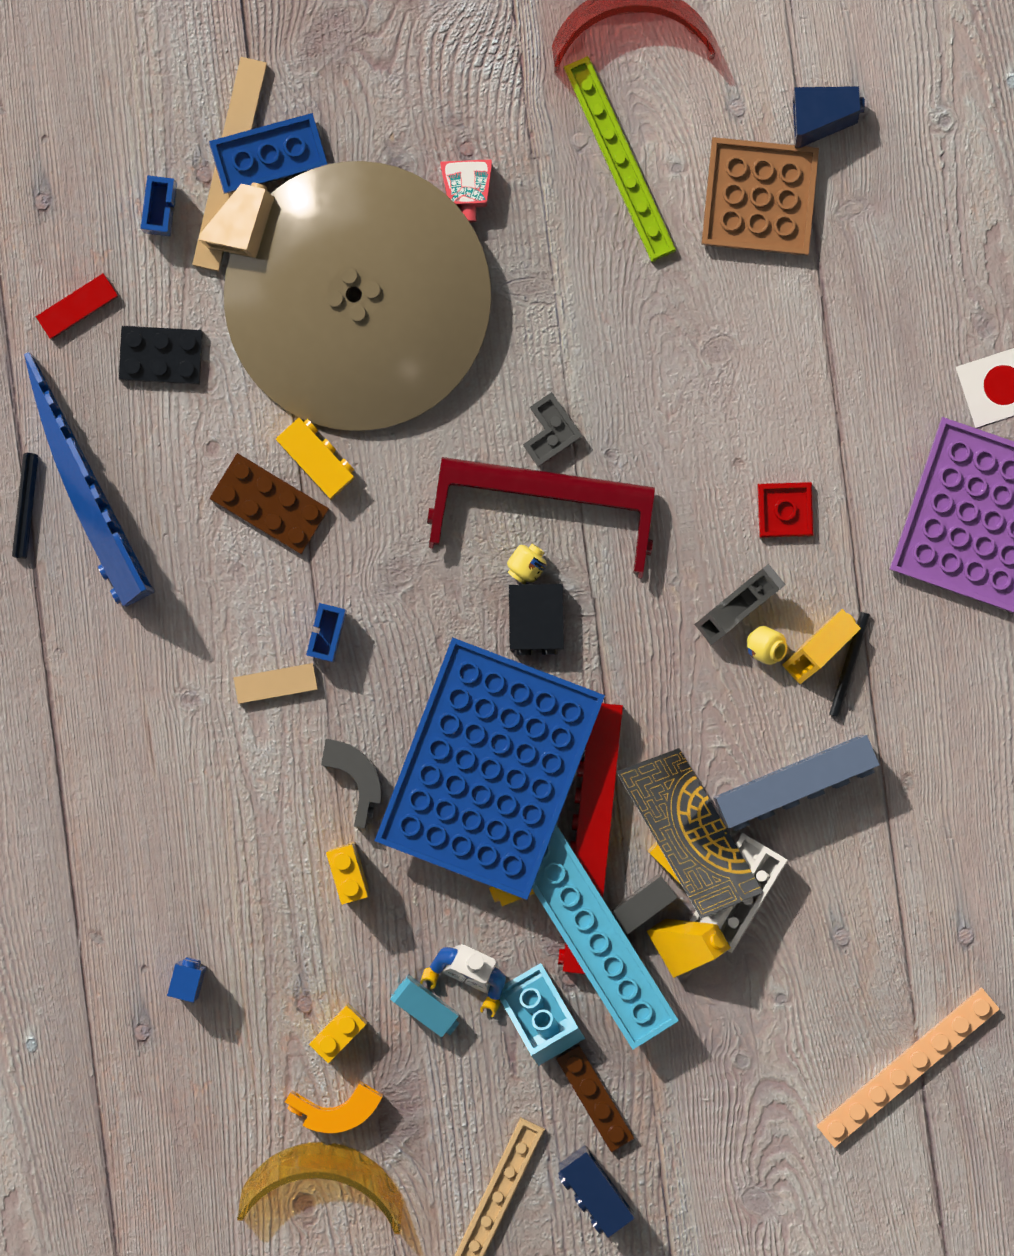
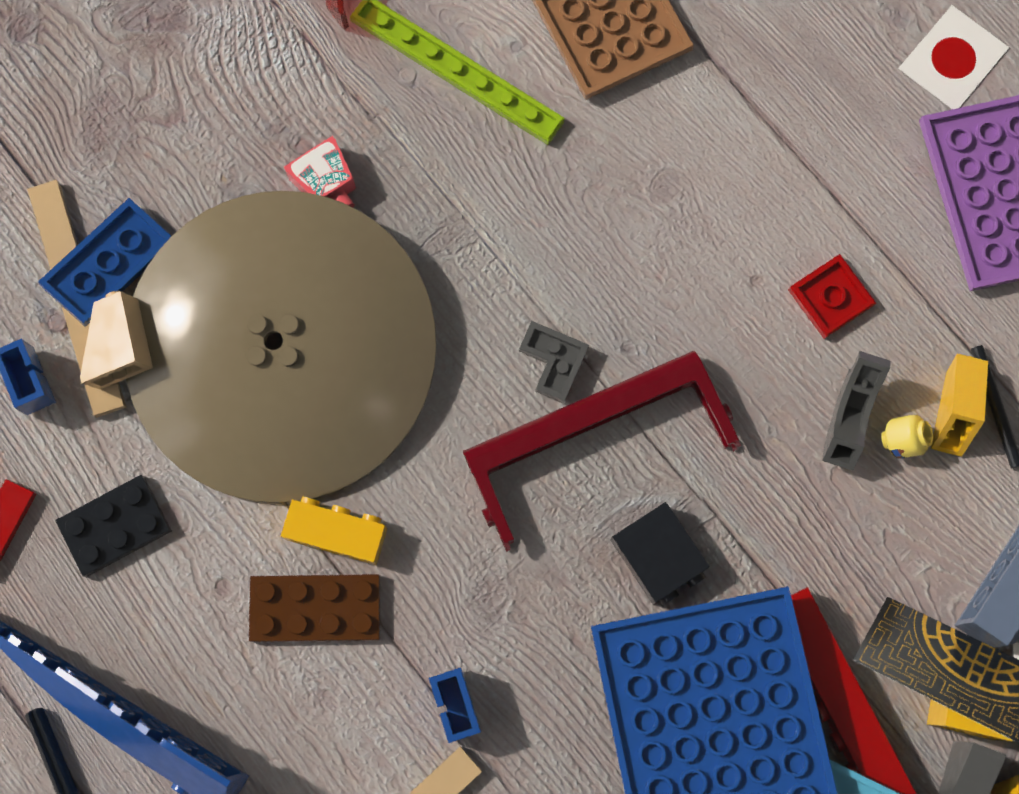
camera: 30 degrees left, 10 degrees down
(527, 563) = (615, 504): light yellow head -> none

